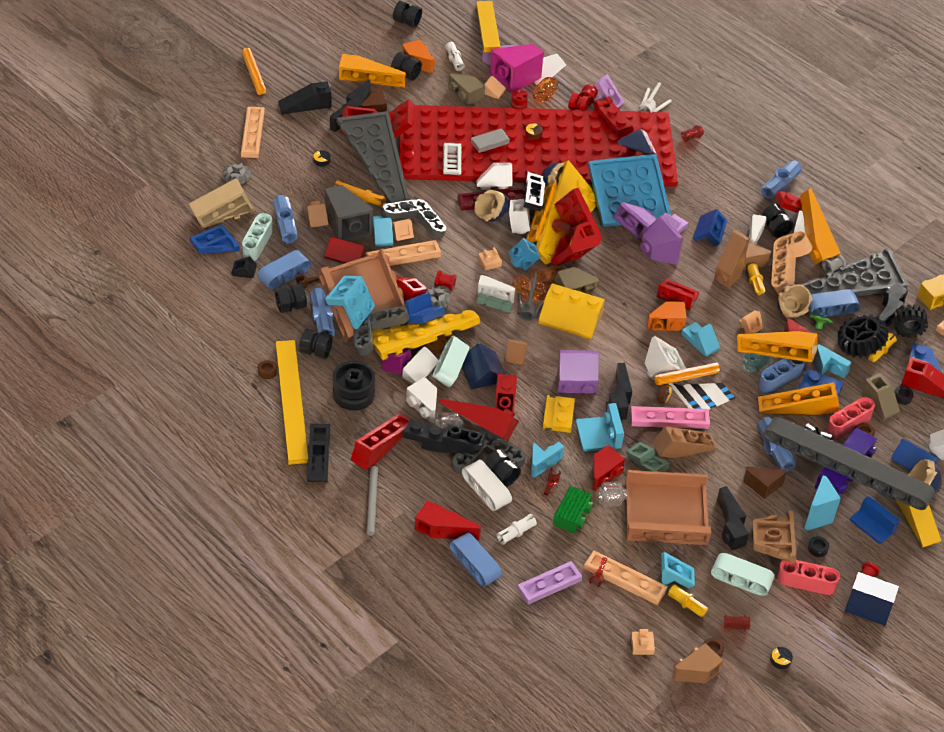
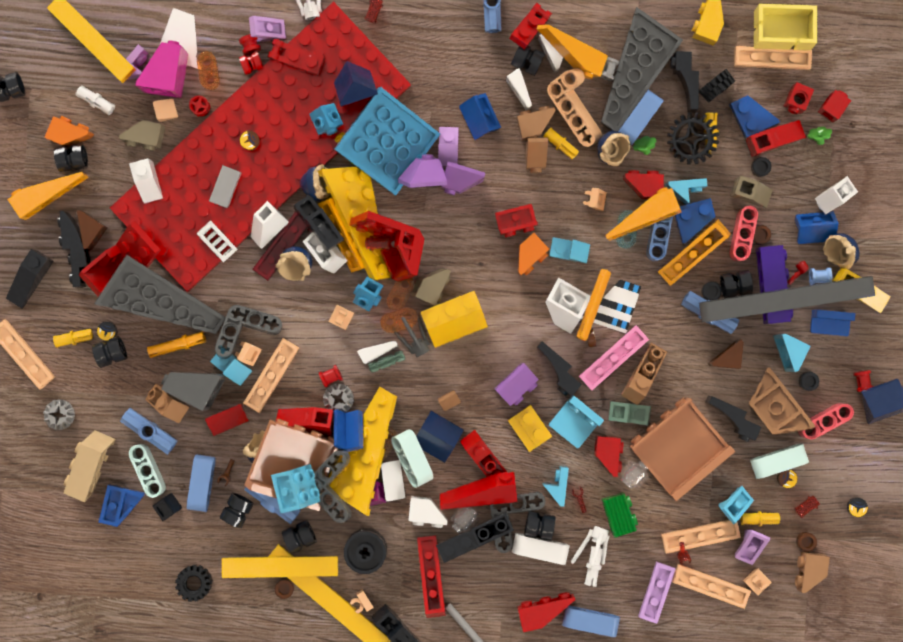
camera: 35 degrees left, 40 degrees up
(212, 324) = (182, 586): none -> black tyre
(282, 350) = (279, 566): none -> yellow tile
(295, 145) = (73, 337): none -> yellow axle
(311, 164) = (109, 352): none -> black wheel
(315, 412) = (363, 600): none -> light nougat tile
(442, 100) = (146, 180): none -> white slope
(540, 512) = (599, 536): none -> white plant
(599, 148) = (326, 119): none -> dark azure brick
(599, 617) = (711, 586): none -> light nougat tile
(665, 605) = (751, 546): none -> lavender slope
(738, 593) = (787, 478): none -> tile

